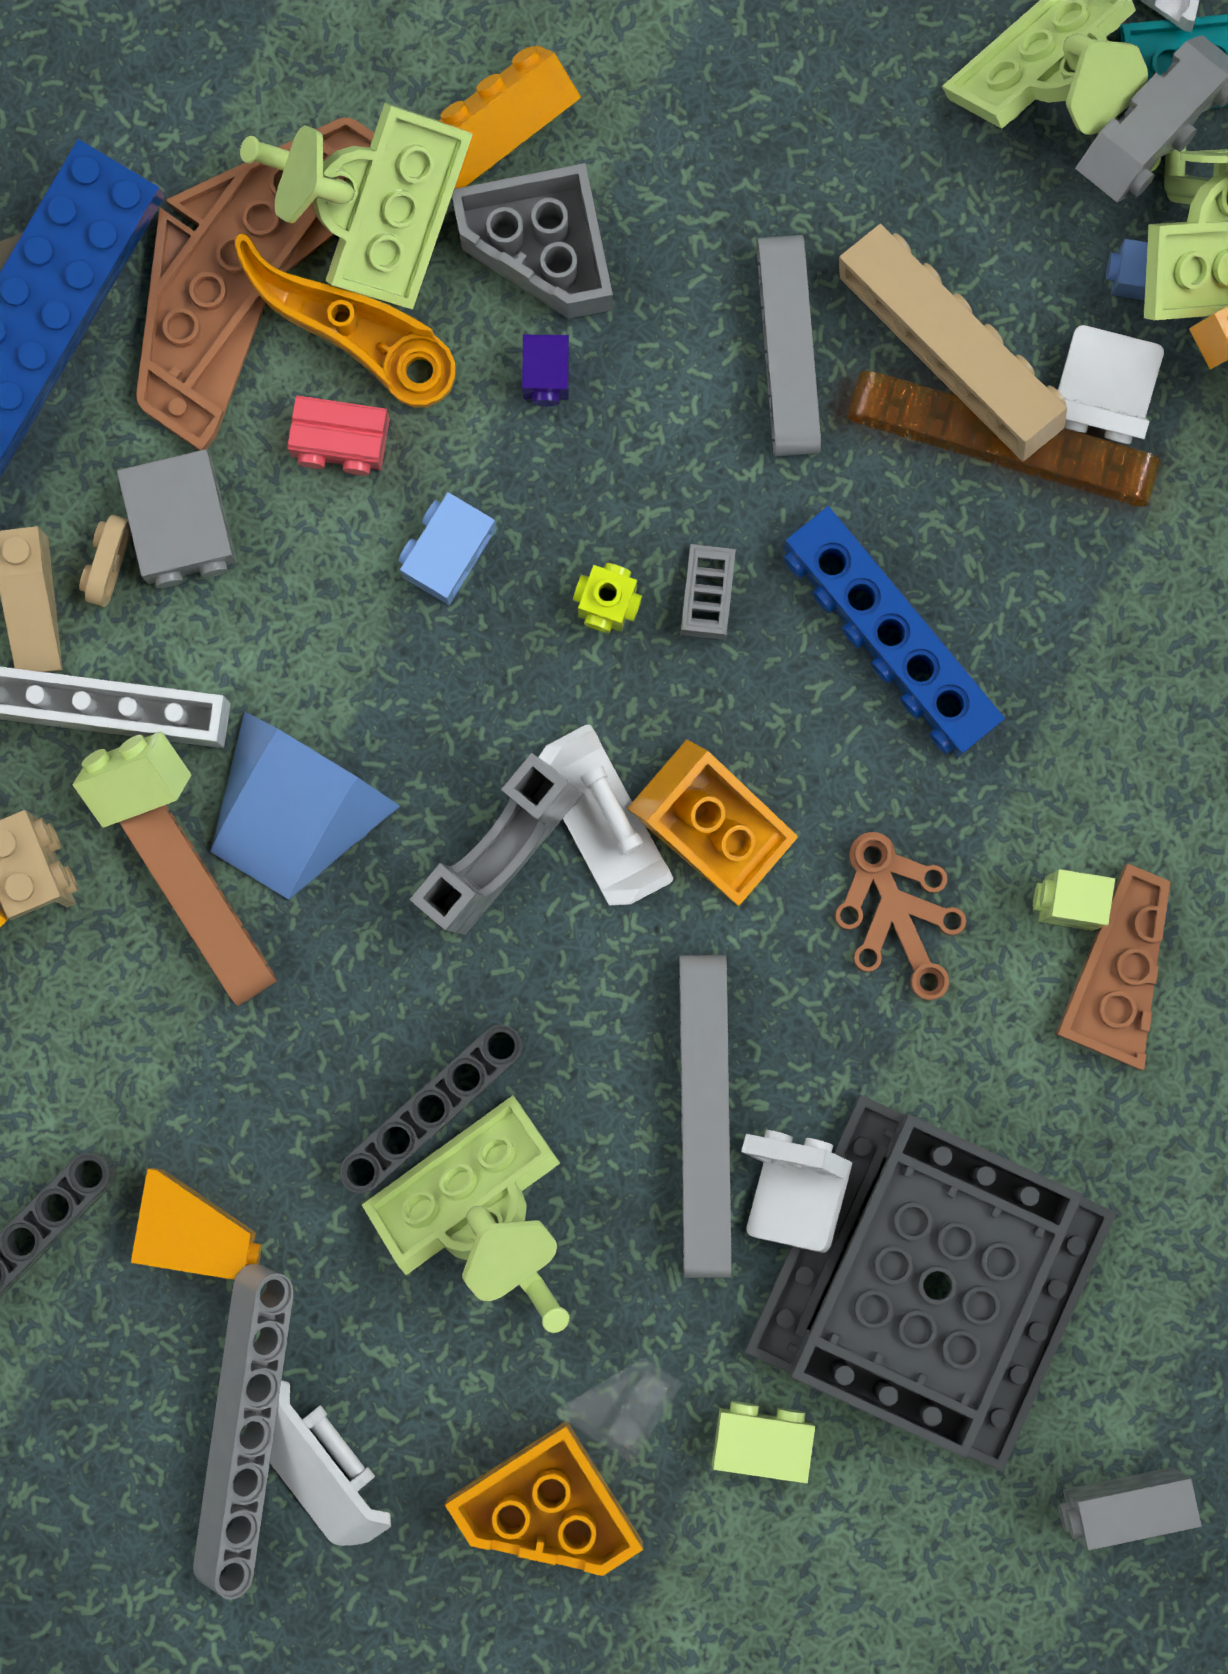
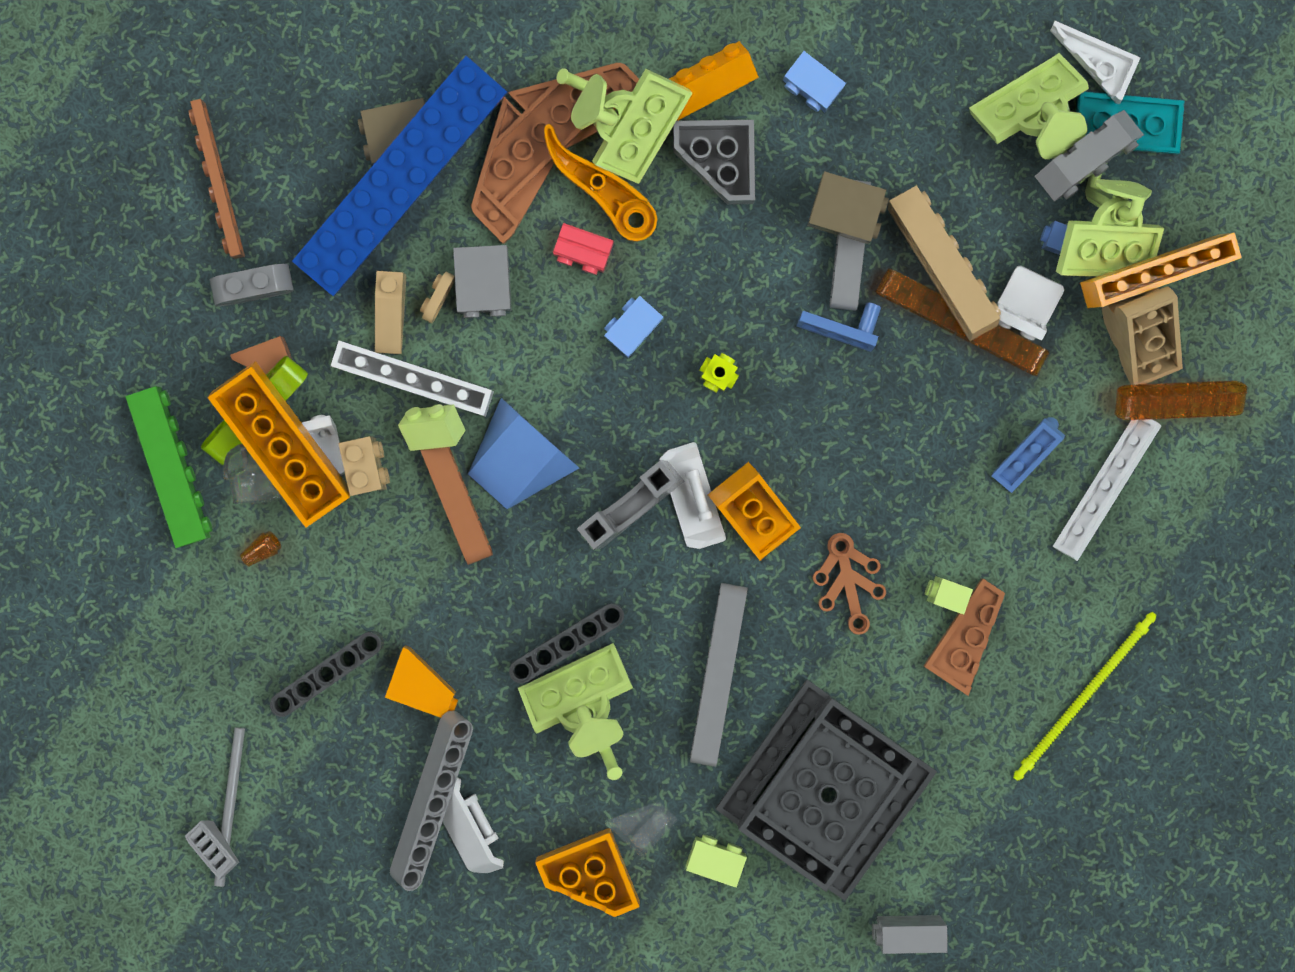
camera: 10 degrees right, 5 degrees up
(545, 369) = (708, 233): dark purple brick -> none
(674, 90) = (813, 82): none -> light blue brick
(702, 627) = (770, 399): light grey slope -> none
(772, 279) = (848, 208): none -> dark tan brick
(796, 1191) = (761, 727): white bracket -> none
(804, 492) = (860, 337): none -> medium blue piece
(829, 536) = (915, 477): blue brick -> none
(1161, 637) = (1029, 454): none -> medium blue piece

